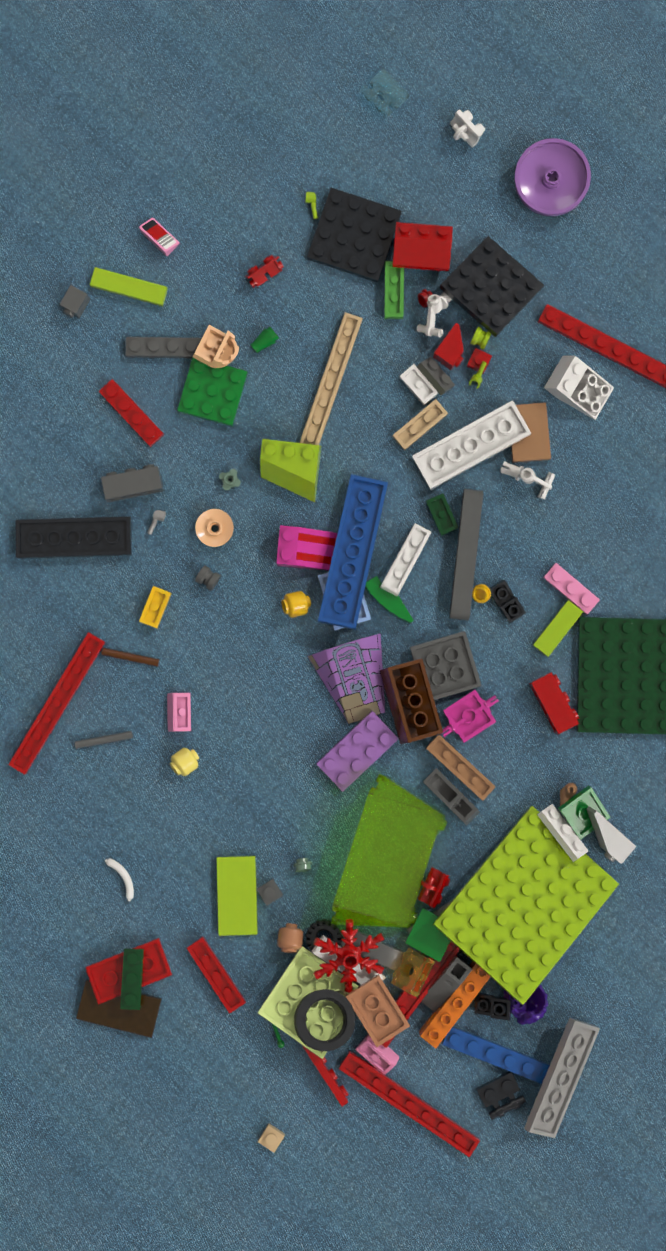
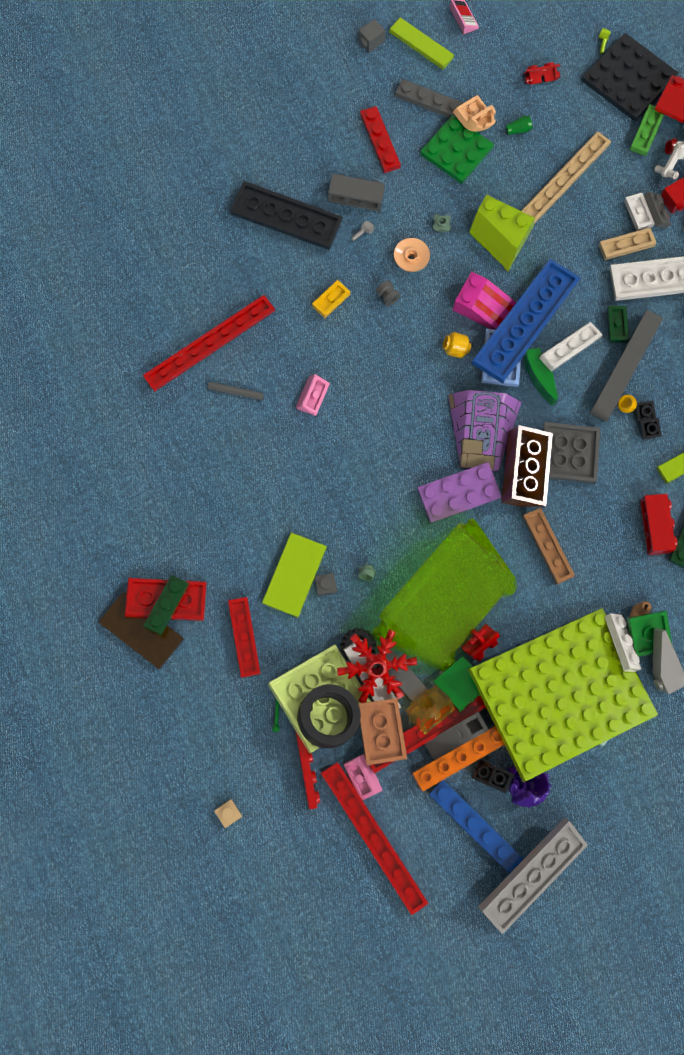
camera: 20 degrees right, 10 degrees down
(125, 876) = (200, 514): white piece -> none
(130, 657) = (280, 325): reddish brown bar -> none
(184, 761) = (299, 437): light yellow head -> none
(290, 938) = (327, 632): nougat head -> none
(451, 796) = (530, 569): dark grey slope -> none
(469, 716) = (574, 504): dark pink plate -> none
(498, 1089) = (466, 862): black plate -> none

